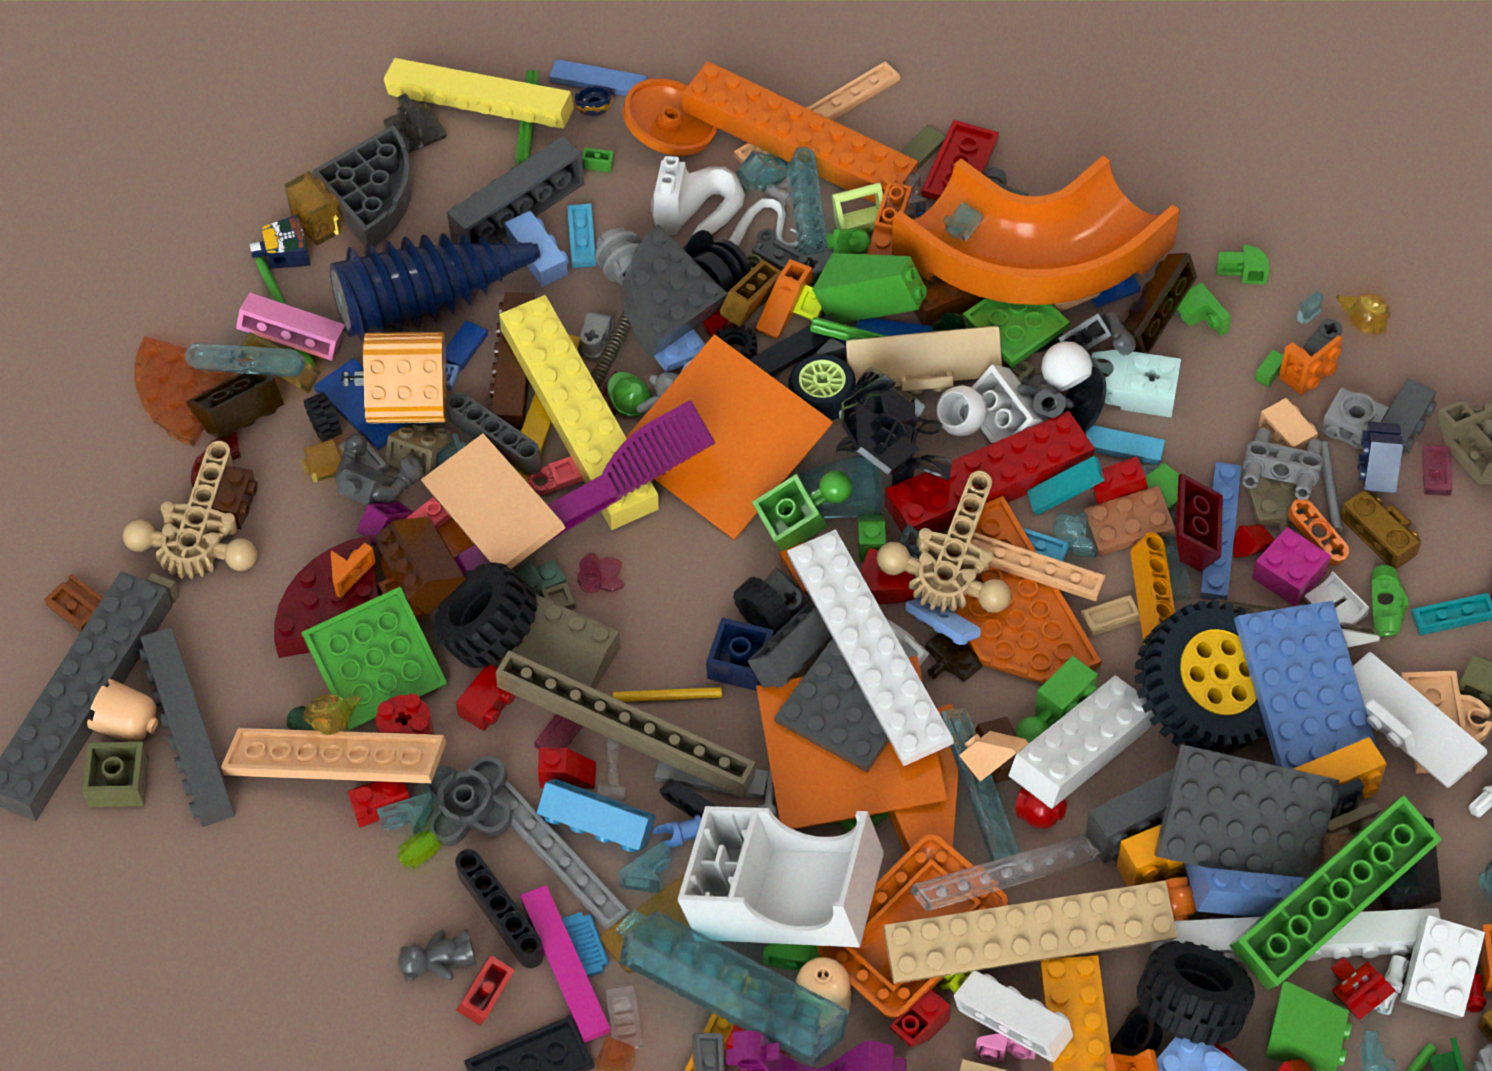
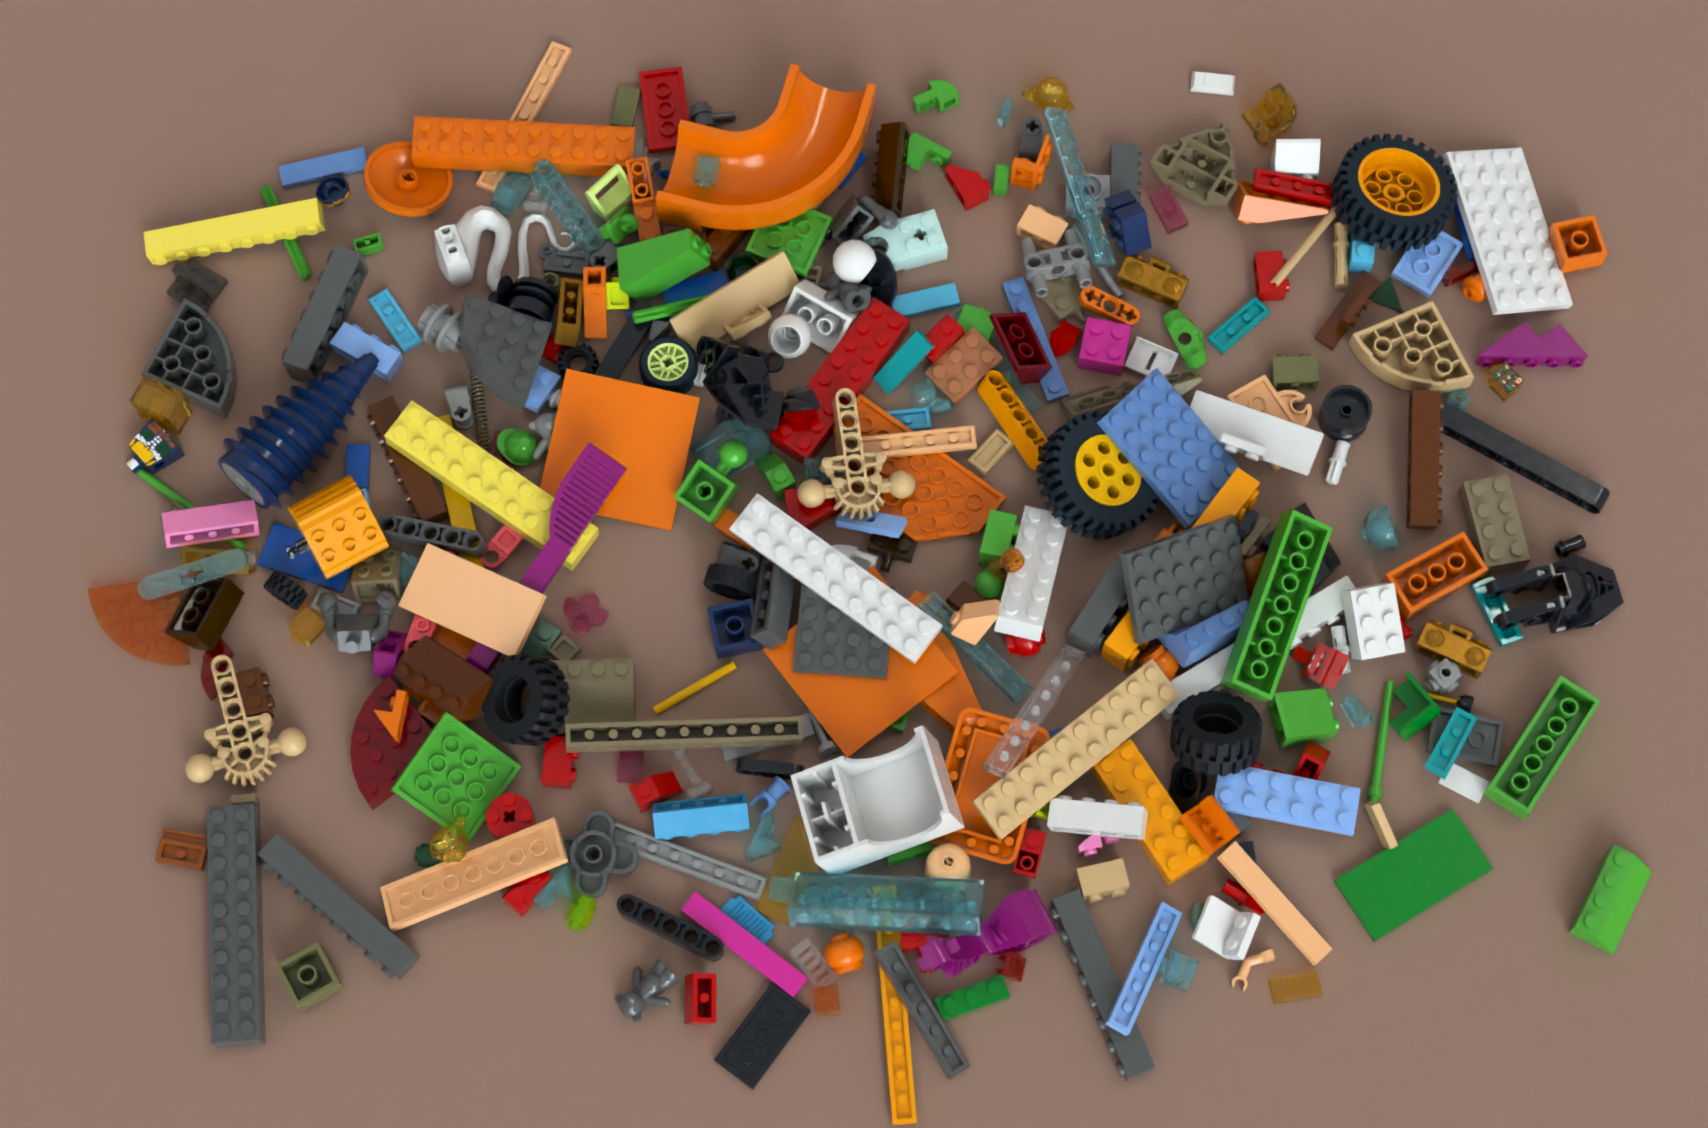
camera: 30 degrees left, 15 degrees up
(123, 713) = (285, 923): light nougat cylinder -> none
(662, 1021) = (844, 953): none -> orange piece
(1063, 711) = (1011, 561): none -> clear orange plate
(1231, 358) = (967, 186): none -> red slope
(1346, 401) = (1079, 187): none -> clear light blue plate

